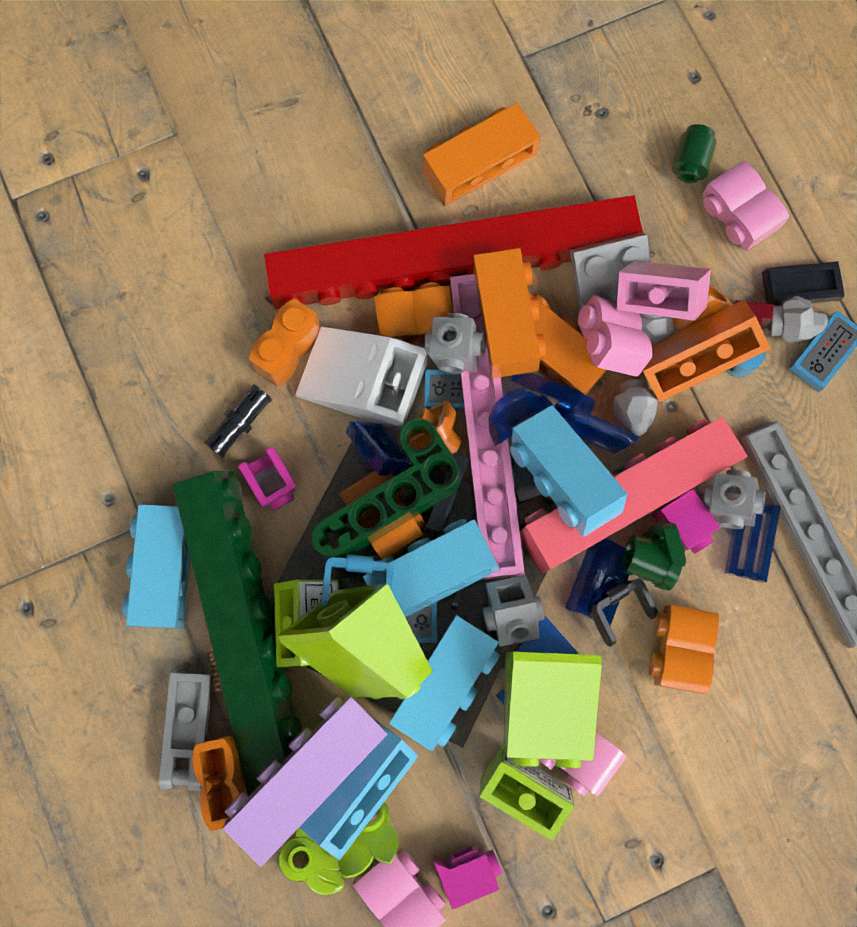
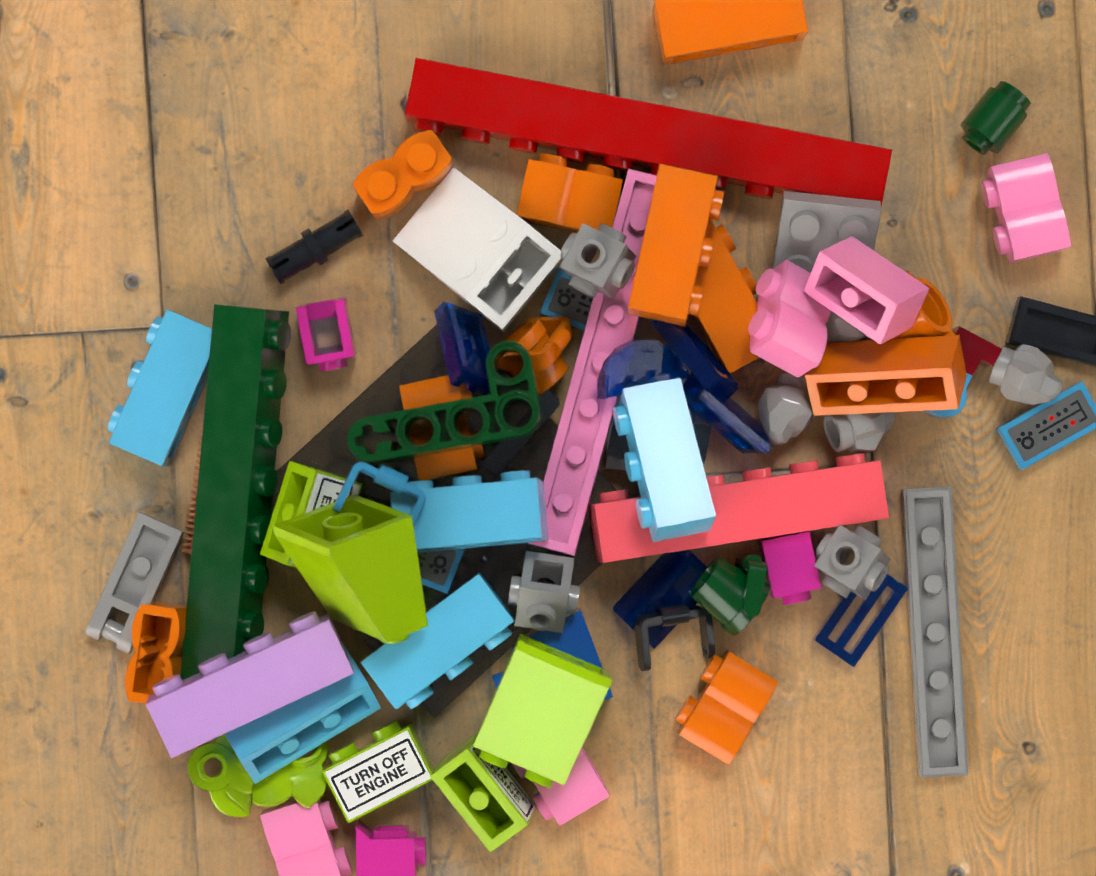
camera: 25 degrees right, 10 degrees up
(435, 809) = (378, 771): none -> brick
(692, 403) = (857, 431): none -> light grey rock

